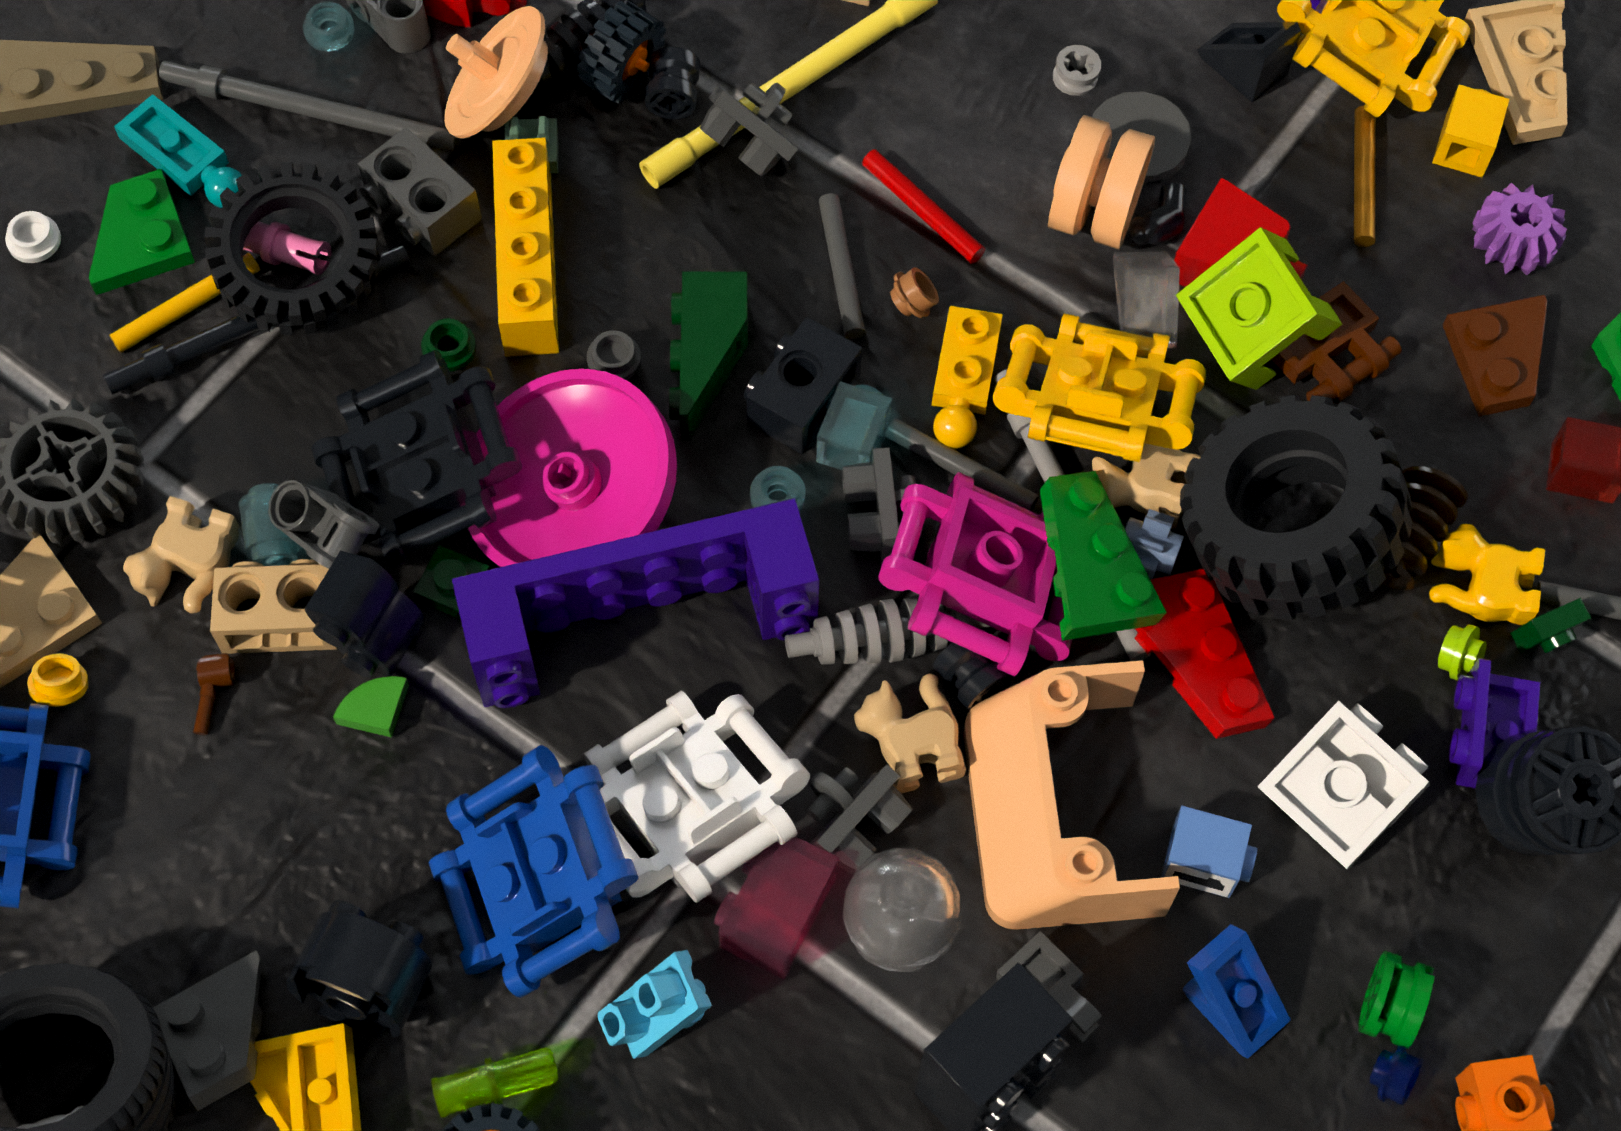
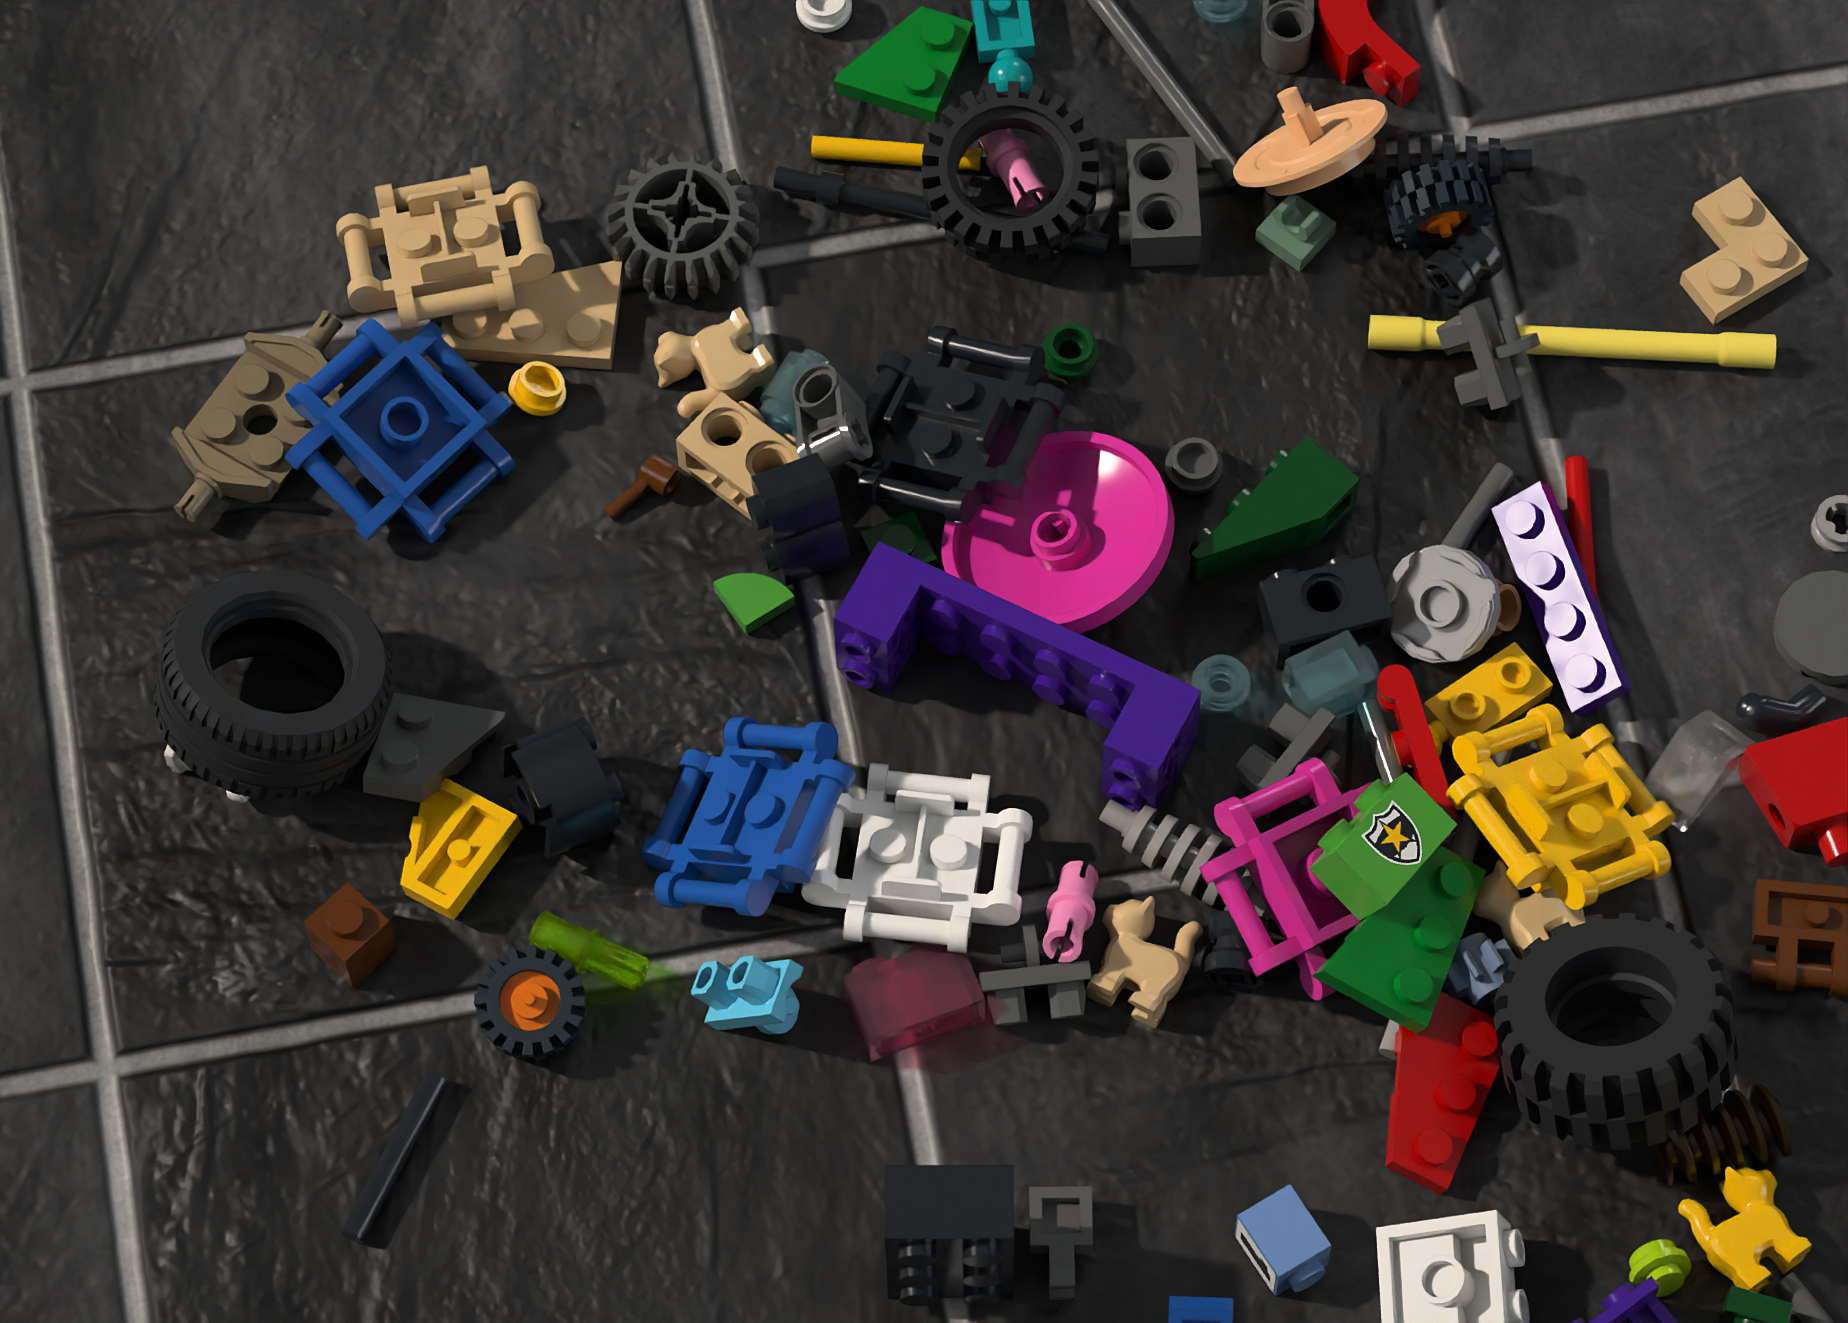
camera: 45 degrees right, 0 degrees up
(525, 247) = (1203, 315): yellow brick -> none
(836, 741) = (1070, 911): none -> bright pink pin
(884, 313) = (1443, 604): none -> light grey tile
(902, 909) = (1006, 1084): clear cylinder -> none
(953, 253) = (1561, 599): none -> plate
(967, 425) = (1414, 740): none -> red plate
(1024, 863) = (1125, 1137): light nougat windscreen -> none
(1025, 506) = (1381, 845): none -> bright green brick
(1093, 180) = (1738, 635): light nougat wheel -> none
(1254, 307) = (1756, 845): lime panel -> none

